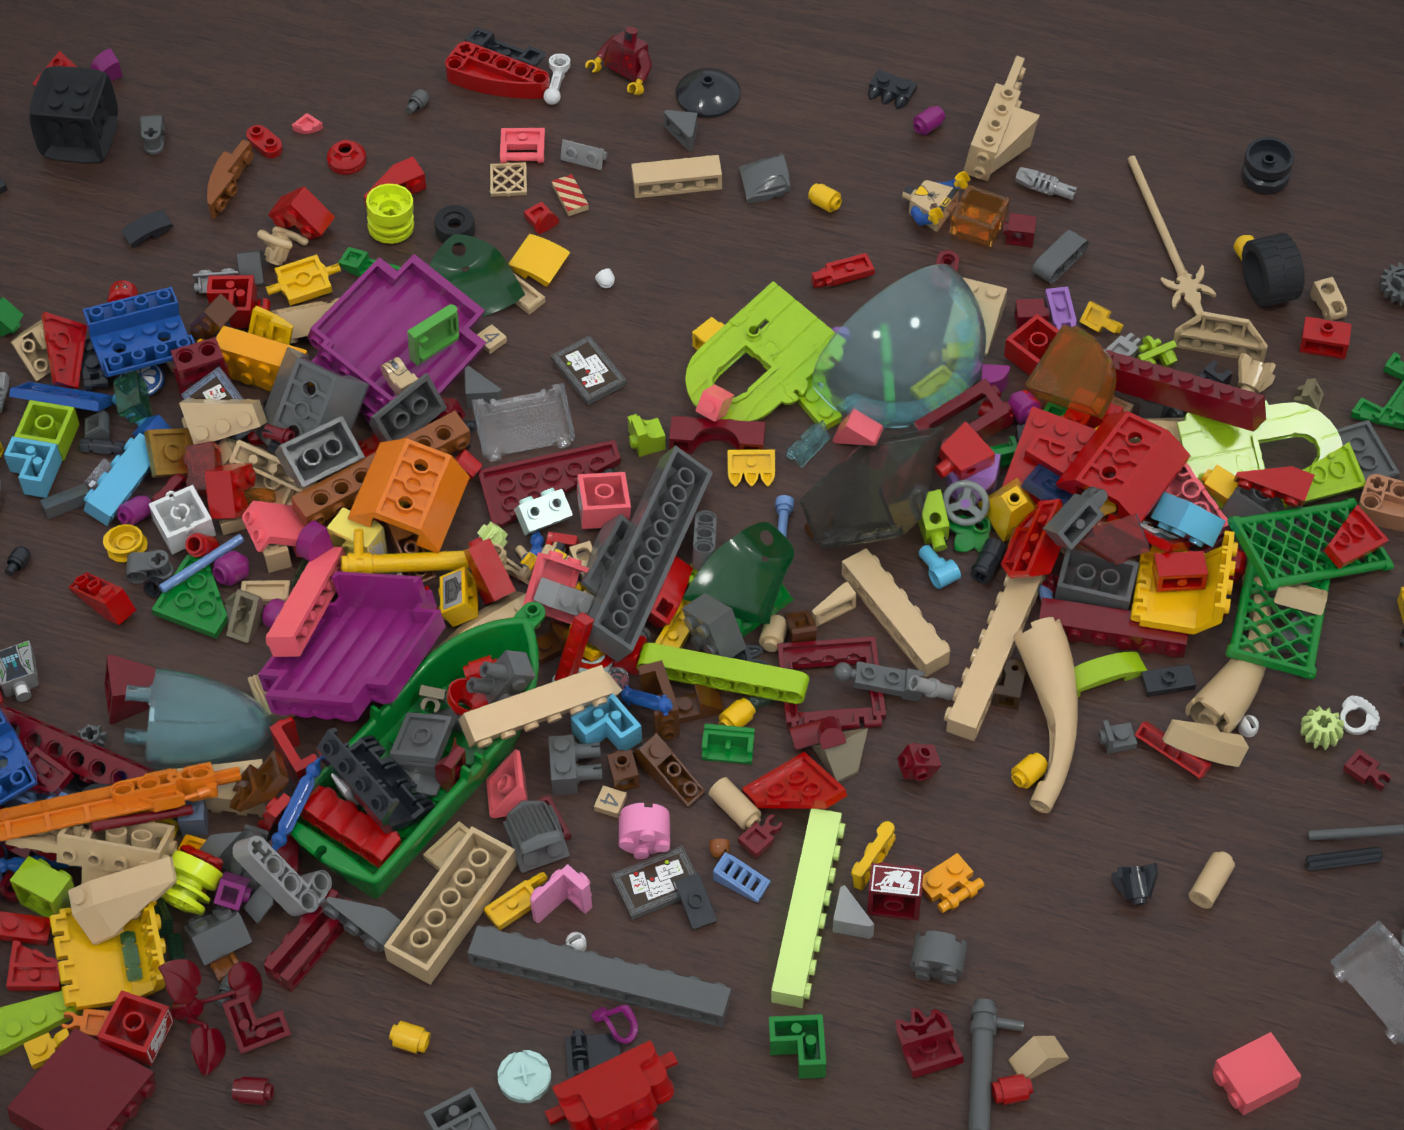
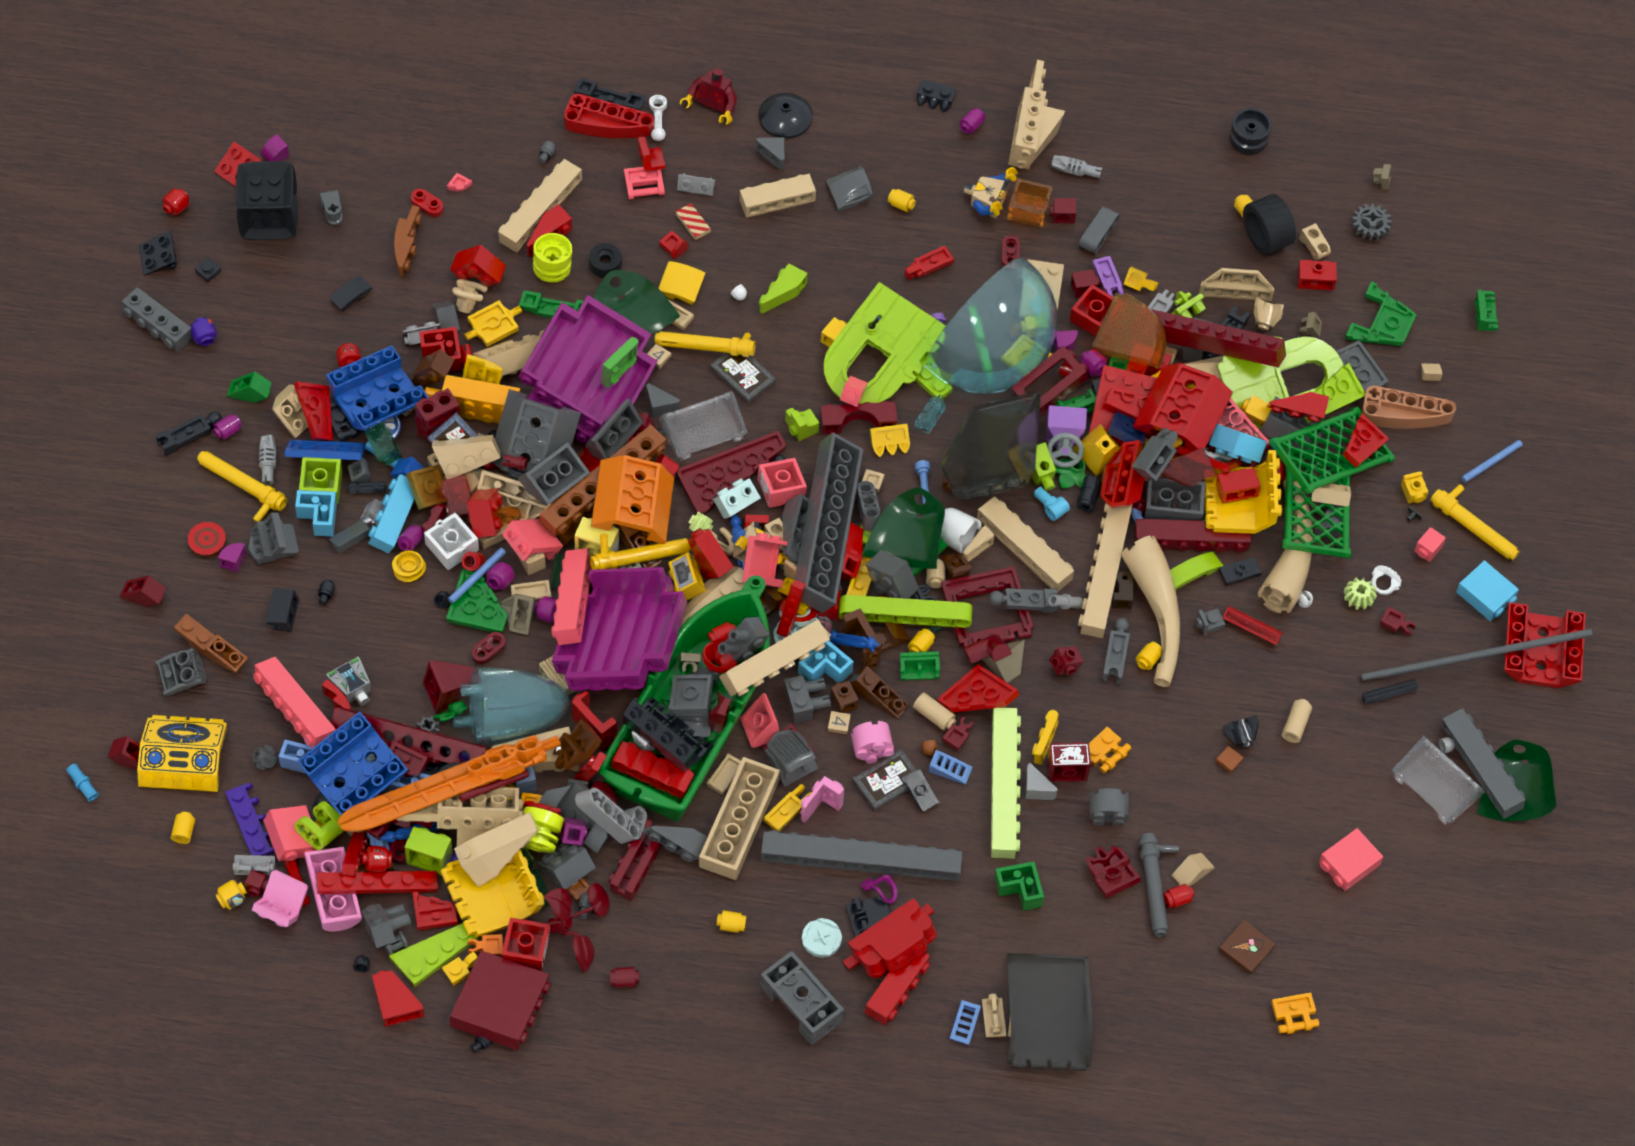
camera: 15 degrees left, 5 degrees up
(103, 597) = (405, 613): red slope -> none
(131, 956) = (508, 891): clear green axle -> none
(132, 719) = (455, 708): none -> green plate
(144, 565) = (431, 583): dark grey piece -> none
(194, 652) = (487, 648): none -> dark red plate
(253, 1032) = (613, 934): dark red brick -> none
(296, 804) = (611, 758): blue wheel -> none
(313, 541) = (563, 547): magenta brick -> none
(347, 162) = (498, 215): red piece -> none
(397, 375) = (599, 402): tan leg -> none
(413, 141) = (545, 197): none -> tan brick
(508, 166) = (633, 219): tan window -> none
(535, 120) = (651, 157): none -> red panel
(563, 597) = (774, 568): light grey brick -> none
(579, 944) = (841, 834): white hinge -> none
(580, 335) = (707, 343): none -> yellow cylinder
(661, 279) = (786, 287): none -> lime slope
(722, 511) = (875, 478): none -> tan plate
(810, 581) = (959, 529): none -> white cylinder
(858, 430) = (967, 398): coral slope -> none
(964, 454) = (1060, 412): red torso -> none
(988, 759) = (1117, 650): none -> dark grey plate
(1113, 918) = (1229, 759): none -> dark orange tile
(1187, 285) = (1202, 243): tan piece -> none
(1206, 742) = (1277, 617): tan slope -> none

